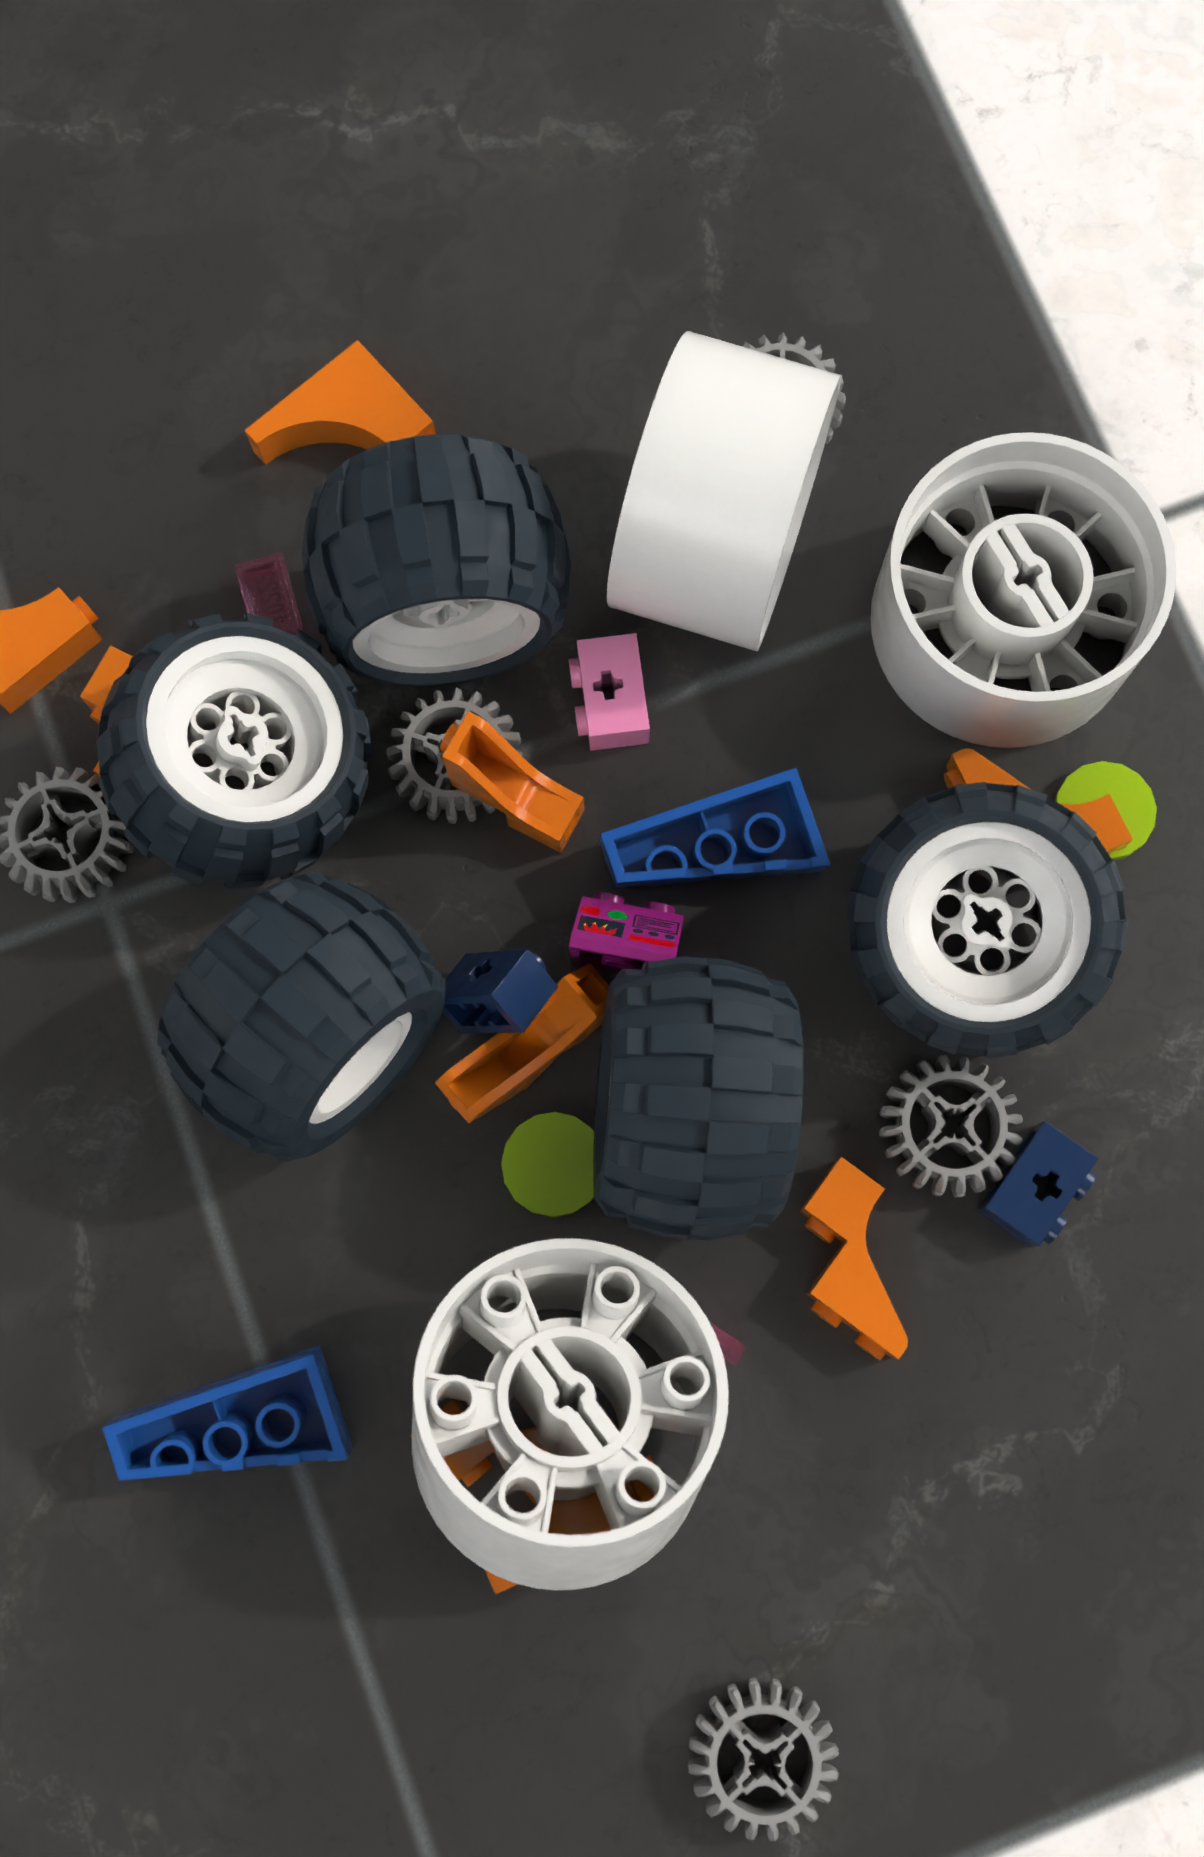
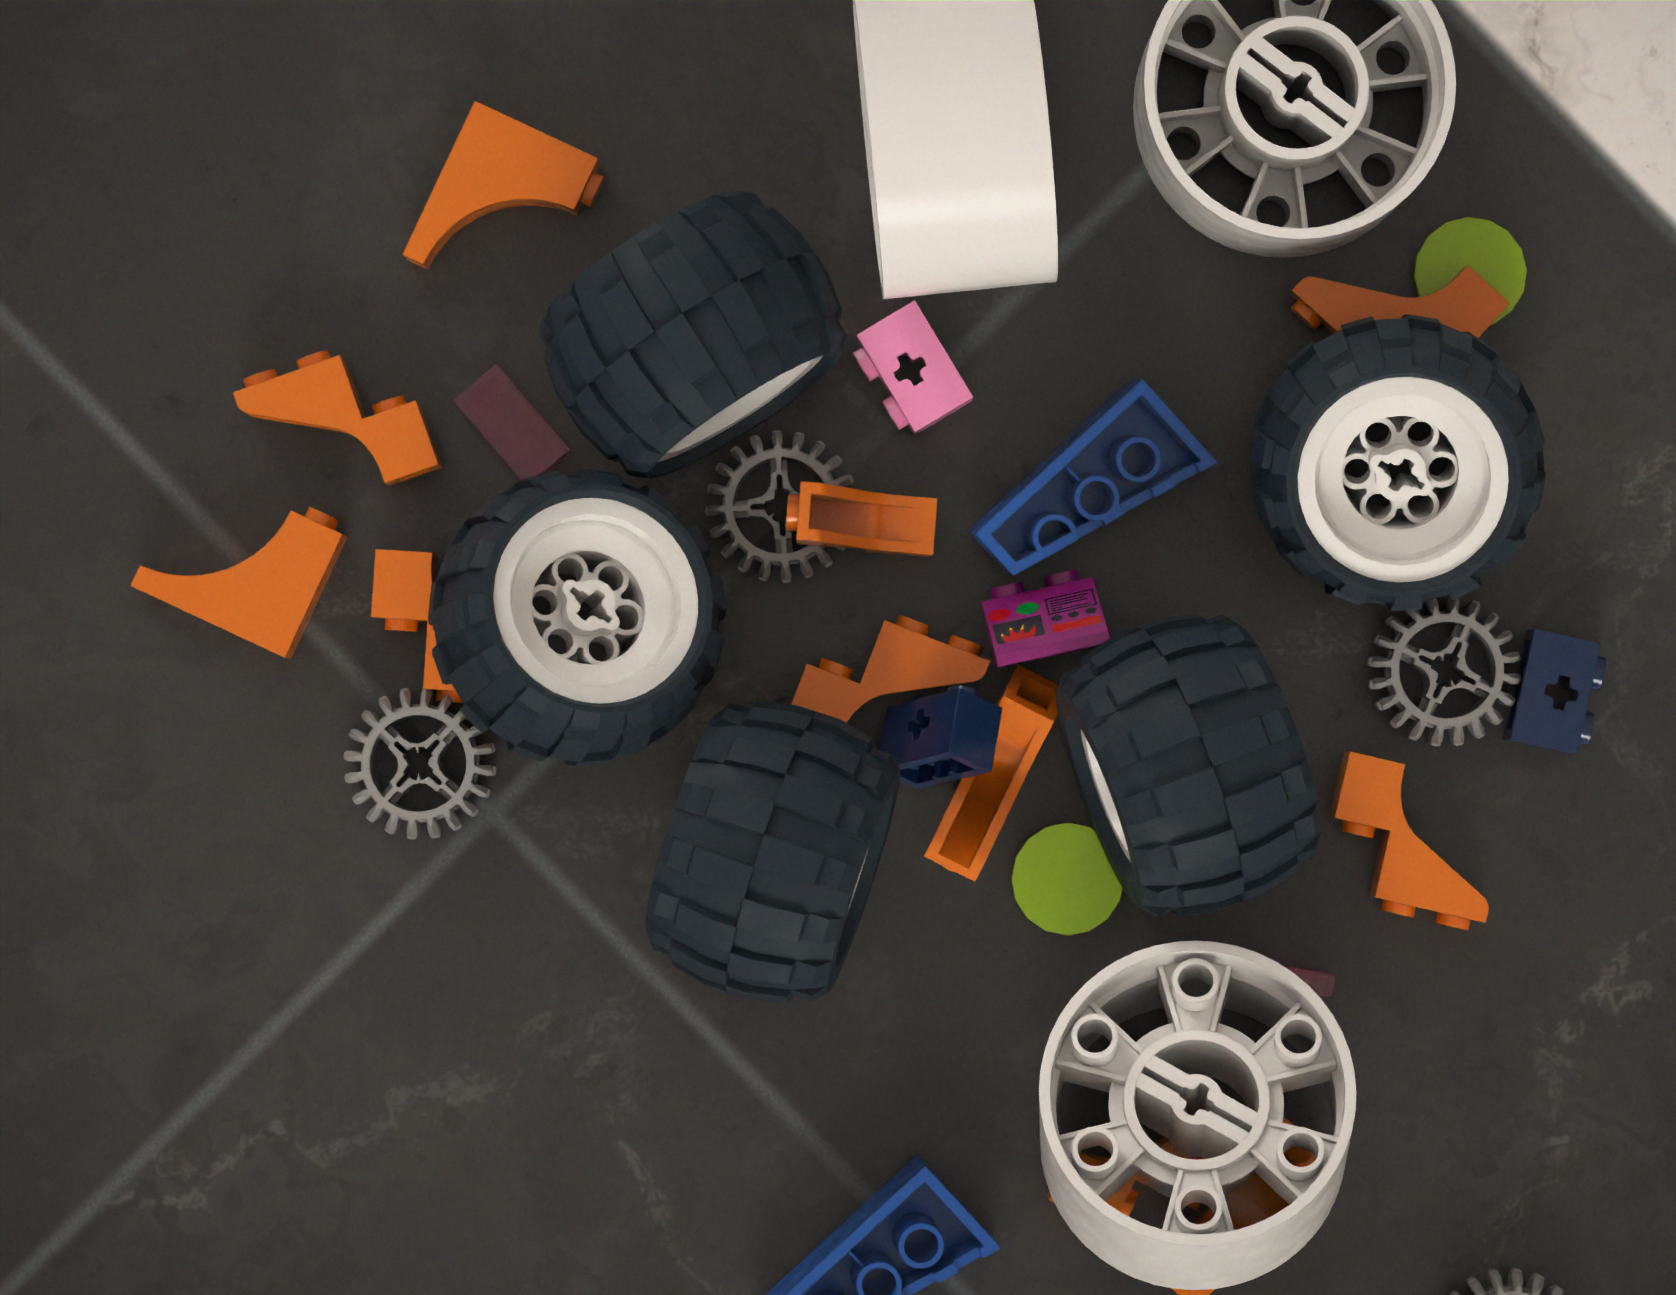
camera: 25 degrees left, 10 degrees up
(136, 520) = (325, 398): none -> orange arch
(490, 922) = (899, 663): none -> orange arch

